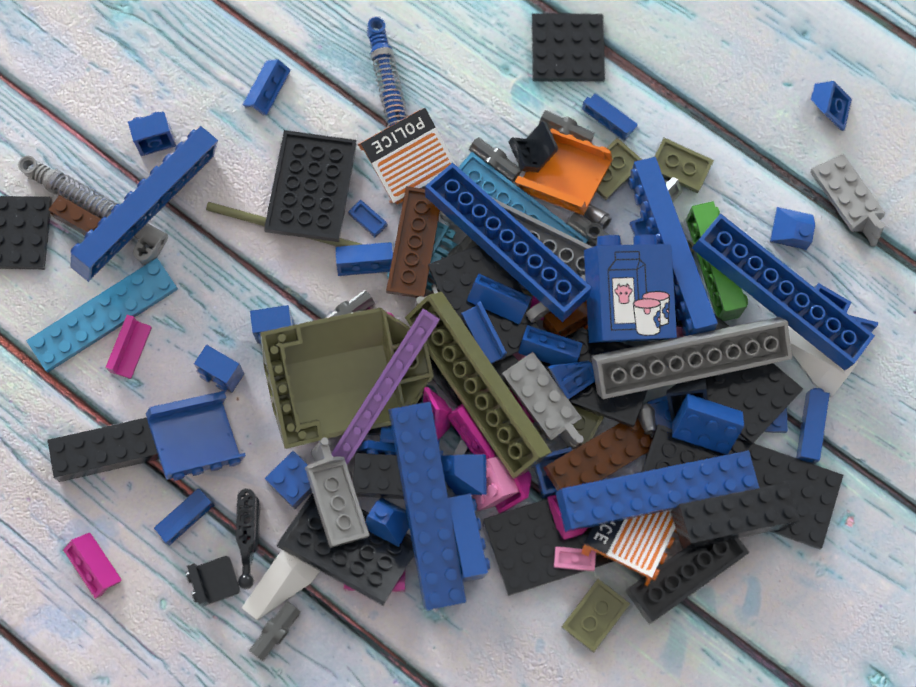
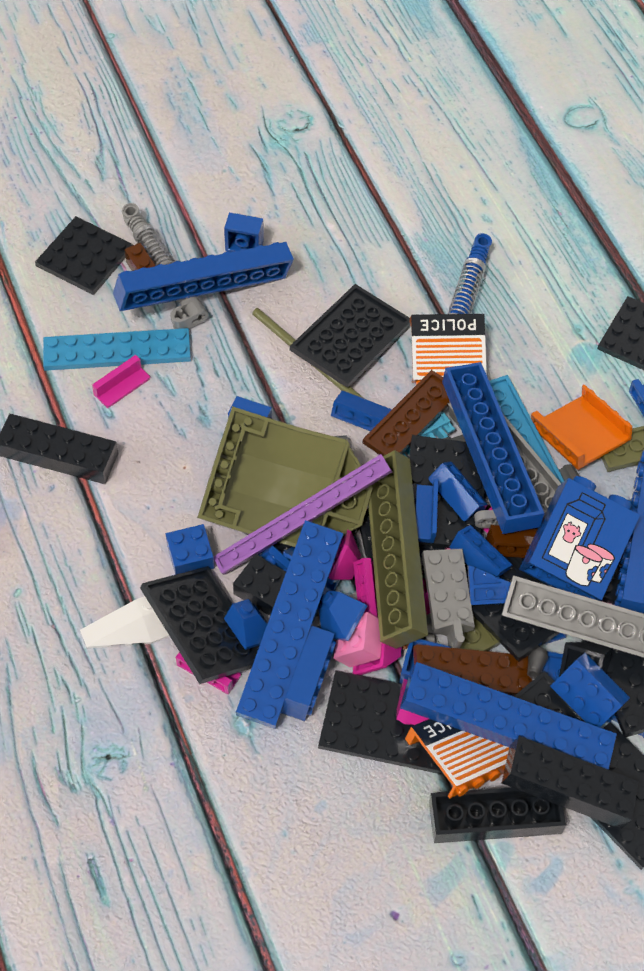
camera: 30 degrees right, 15 degrees down
(183, 516) = (80, 534): blue panel -> none
(193, 436) = (129, 470): blue panel -> none
(212, 581) = (69, 594): black bracket -> none
(218, 368) = (183, 432): blue brick -> none
(247, 550) = (111, 585): black piece -> none
(267, 86) = (362, 247): blue panel -> none
(275, 631) = (95, 662): dark grey piece -> none
(335, 497) = (215, 576): light grey hinge -> none
(367, 218) = (384, 384): blue tile -> none
(495, 158) = (525, 389): dark grey piece -> none
(535, 149) = (562, 401): black bracket -> none
(566, 126) = (605, 393): dark grey piece -> none
(573, 559) = (395, 743): bright pink plate -> none
(595, 615) = (387, 806): olive plate -> none
(598, 216) = (589, 473): flat silver cone -> none

